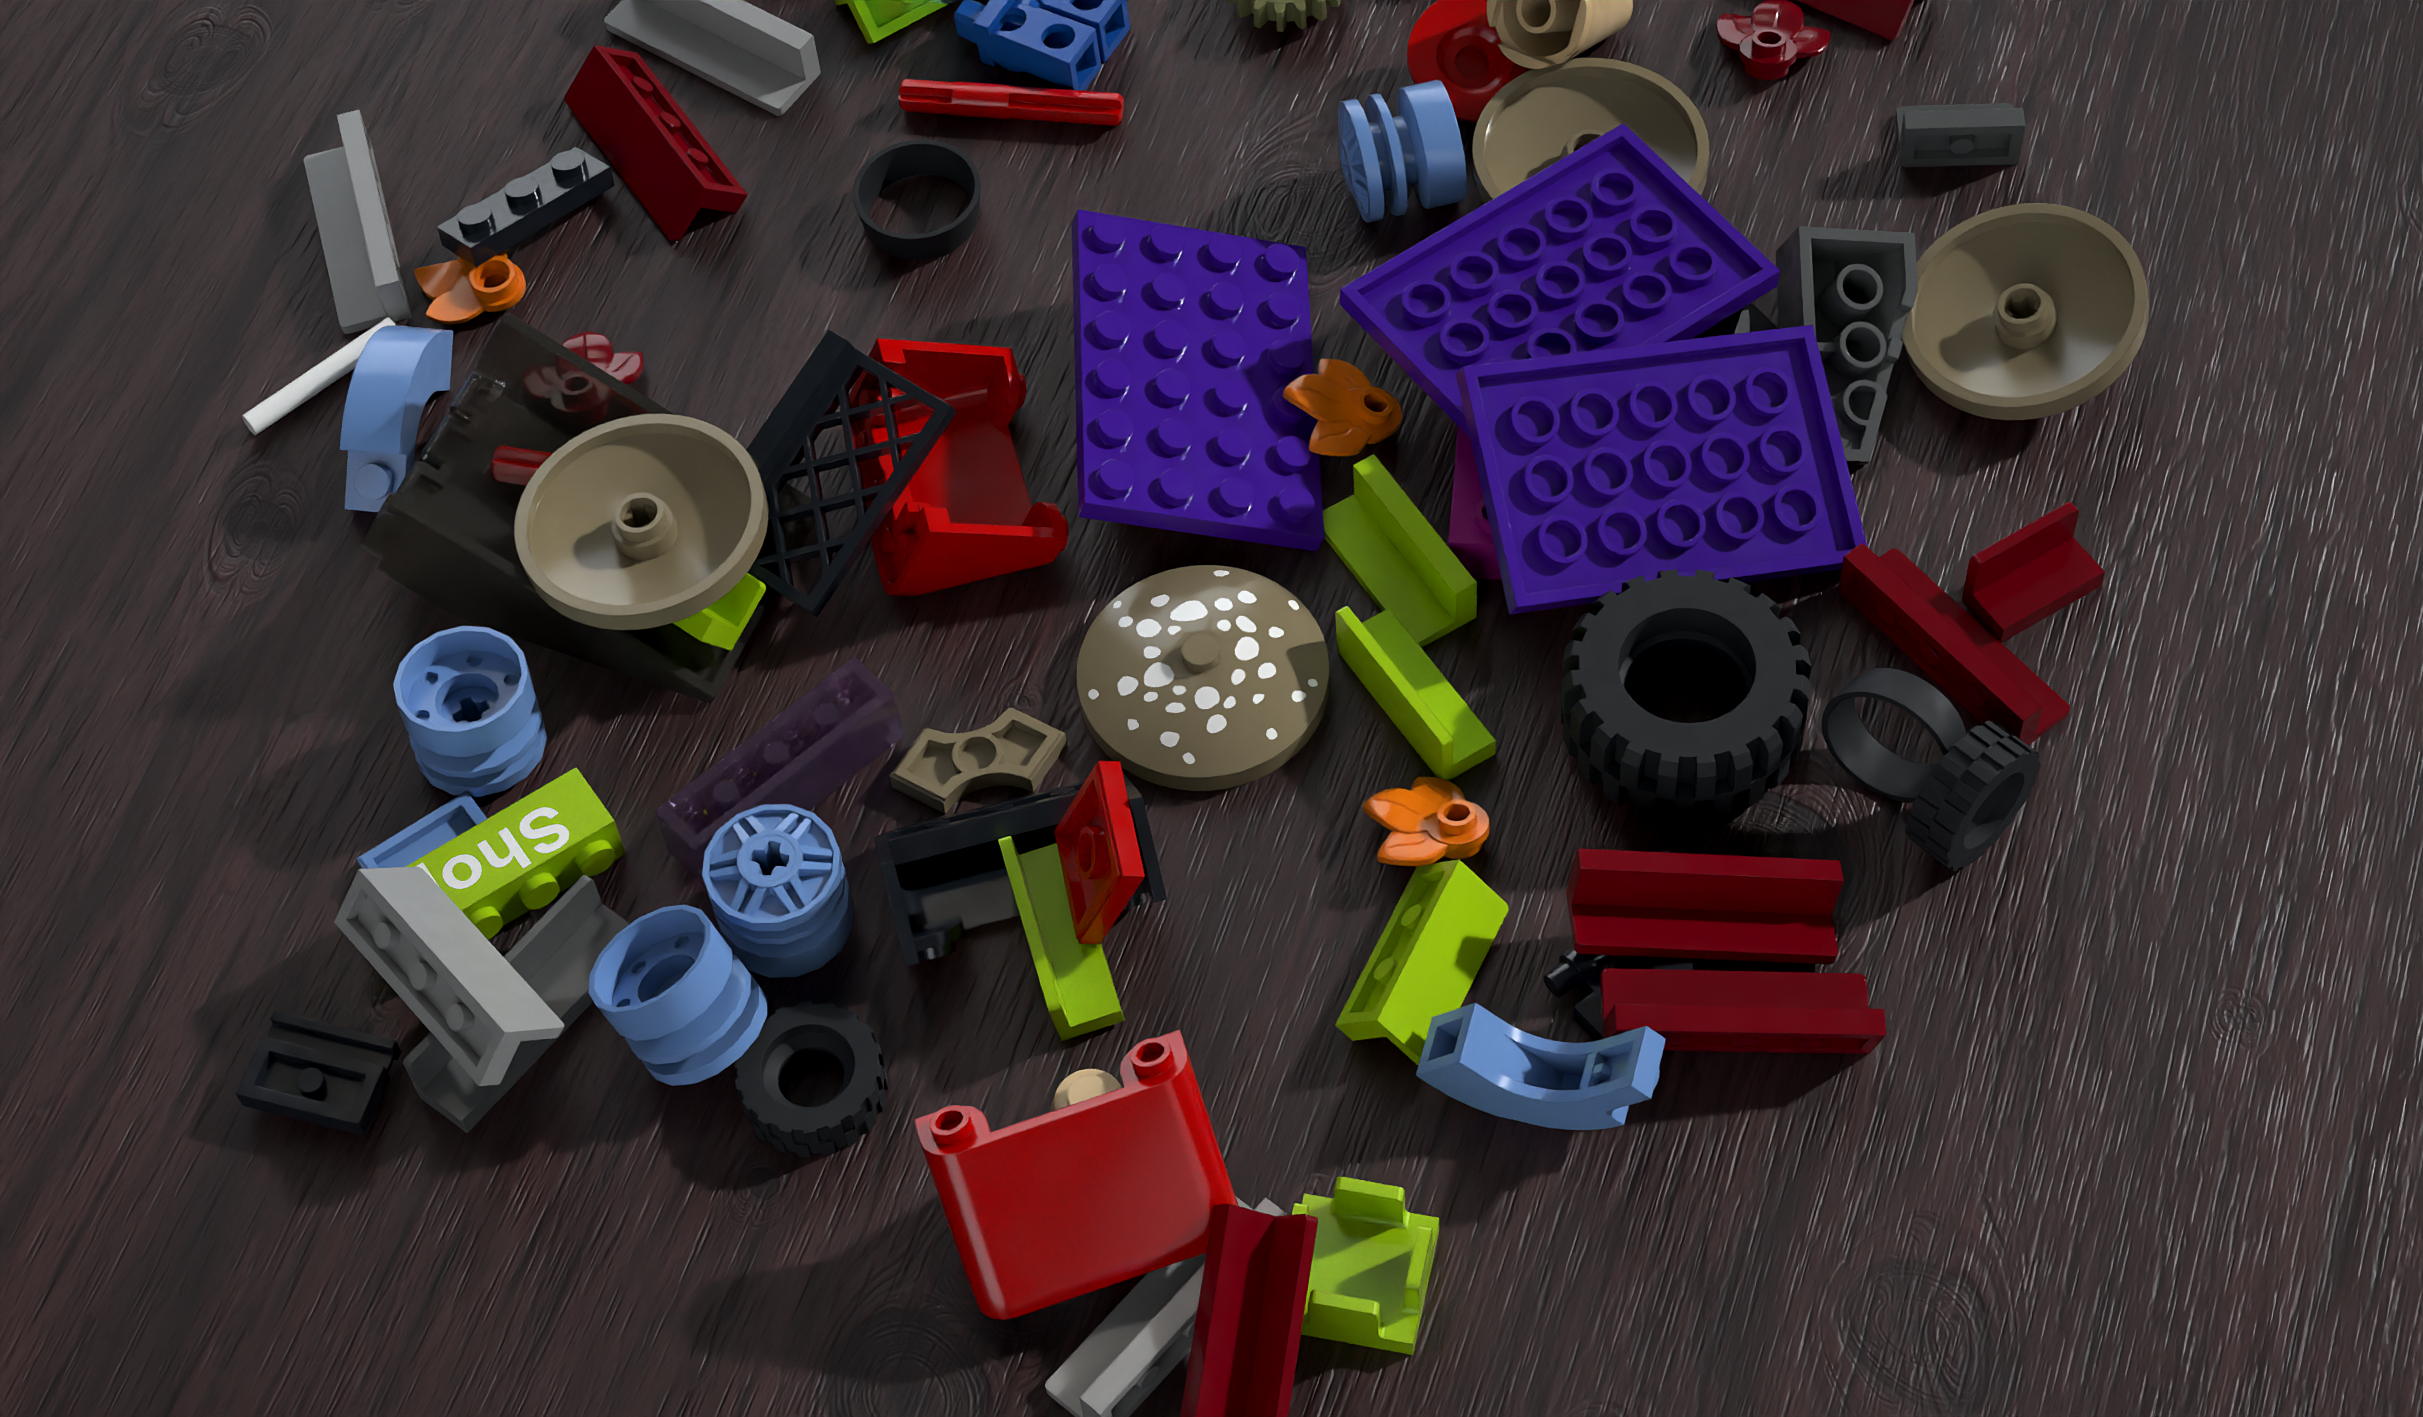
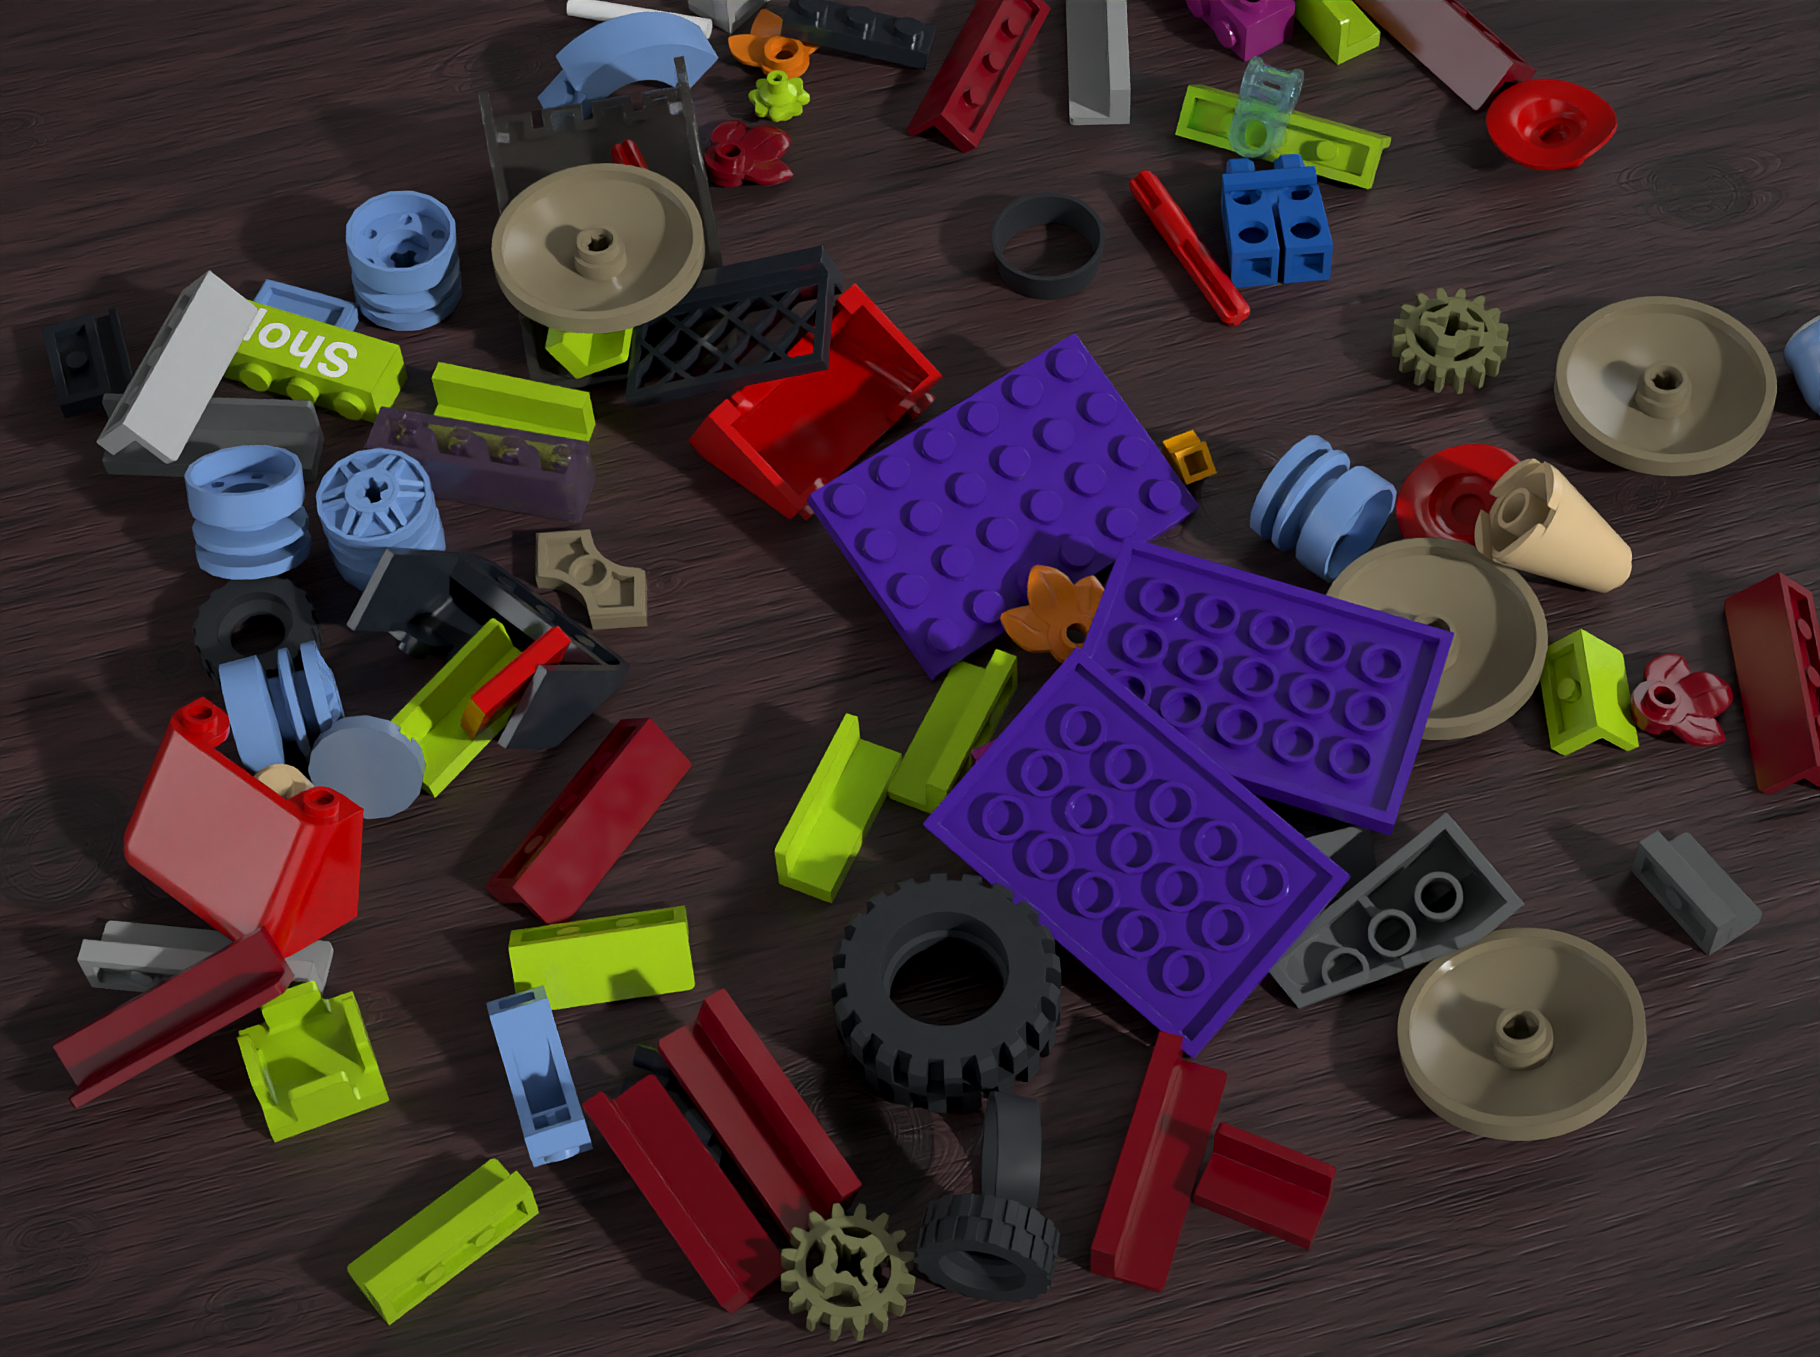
camera: 55 degrees right, 0 degrees up
(545, 307) = (779, 97): none -> lime plant
(719, 718) = (512, 402): none -> lime panel
(940, 1059) = (281, 708): none -> medium blue wheel
(1069, 1030) = (369, 764): none -> sand blue tile
(1203, 677) = (759, 673): dark tan dish -> none
(1251, 220) = (1188, 457): none -> light orange piece
(1260, 897) = (591, 822): none -> dark red panel
(1427, 823) = (725, 883): orange plate -> none
(1633, 1251) = (443, 1239): none -> lime panel
(1725, 97) = (1586, 694): none -> lime panel
(1901, 924) = (855, 1246): none -> olive gear

